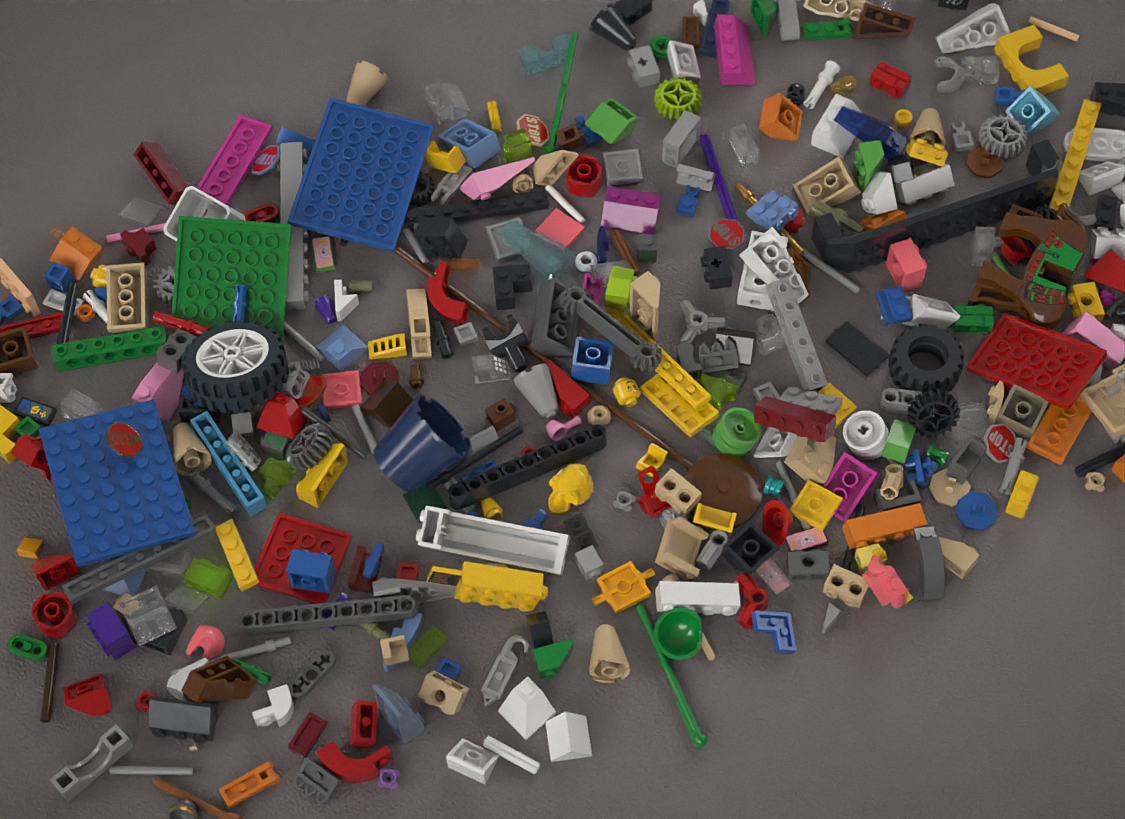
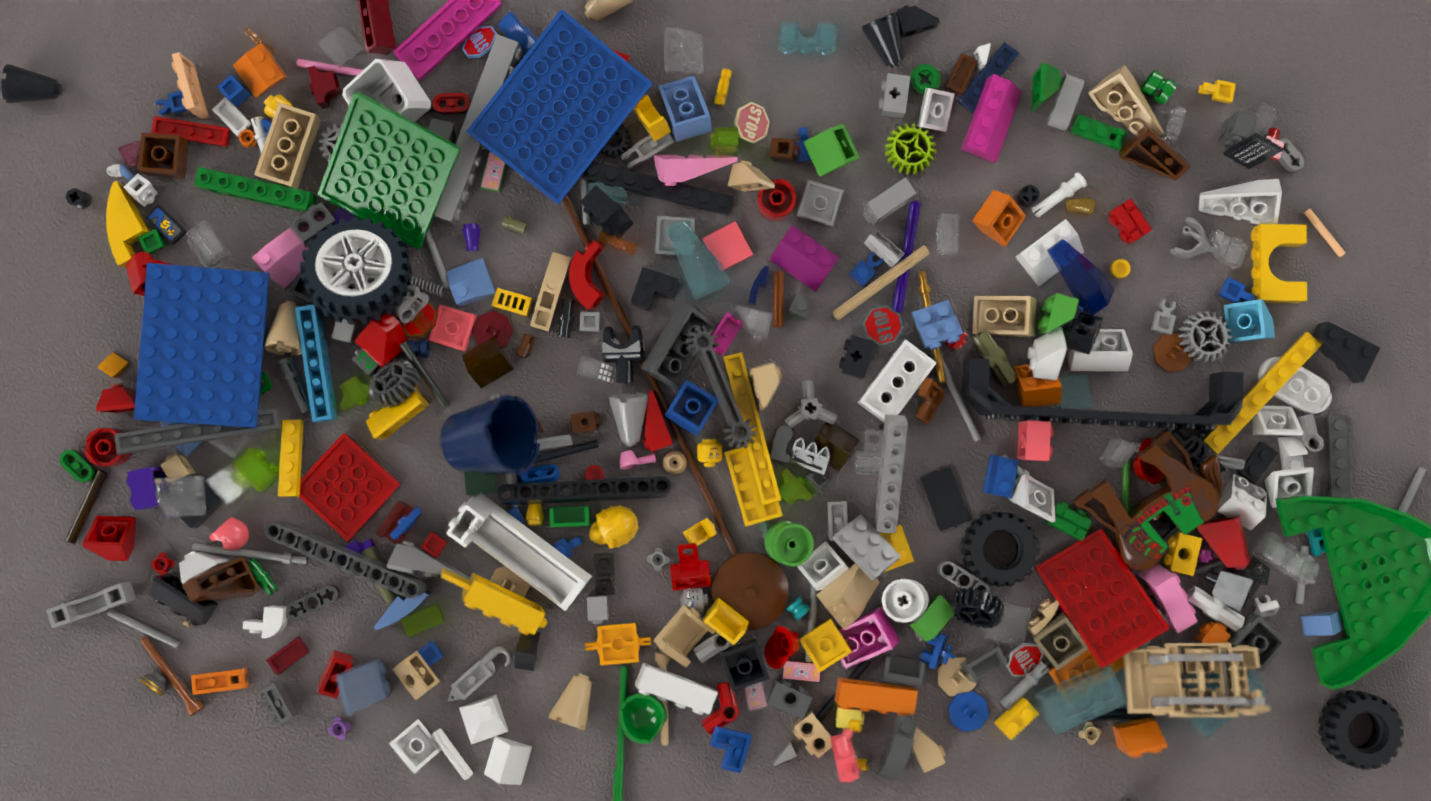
camera: 20 degrees right, 25 degrees up
(68, 313) = (228, 135): black axle -> none
(124, 440) = (218, 313): piece -> none
(175, 322) = (333, 205): red pin -> none
(239, 303) = (386, 204): blue pin -> none
(243, 450) = (336, 357): light grey plate -> none
(311, 571) = (343, 514): blue brick -> none
(343, 303) = (488, 238): white slope -> none
(353, 769) = (307, 706): red arch -> none
(364, 426) = (457, 379): light grey bar -> none
(394, 650) = (385, 623): tan panel -> none
(522, 184) = (714, 180): tan plate -> none
(526, 498) = (570, 516): none -> green panel
(552, 658) = (524, 684): green slope -> none
(562, 94) = (760, 152): green bar -> none
(565, 204) = (746, 218): white bar -> none
(582, 256) = (731, 298): white piece -> none
(618, 287) = (750, 345): lime brick -> none
(681, 489) = (706, 586): tan brick -> none
(706, 203) = (881, 282): none -> tan axle
(772, 262) = (906, 389): white wedge -> none
(795, 419) = (843, 566): dark red brick -> none
(892, 482) = (904, 657): tan piece -> none
(926, 152) = (1117, 329): yellow plate -> none
(929, 128) = (1134, 300): tan cone -> none
(938, 455) = (961, 644): green bush -> none
(1067, 448) = (1080, 699): none -> clear light blue brick

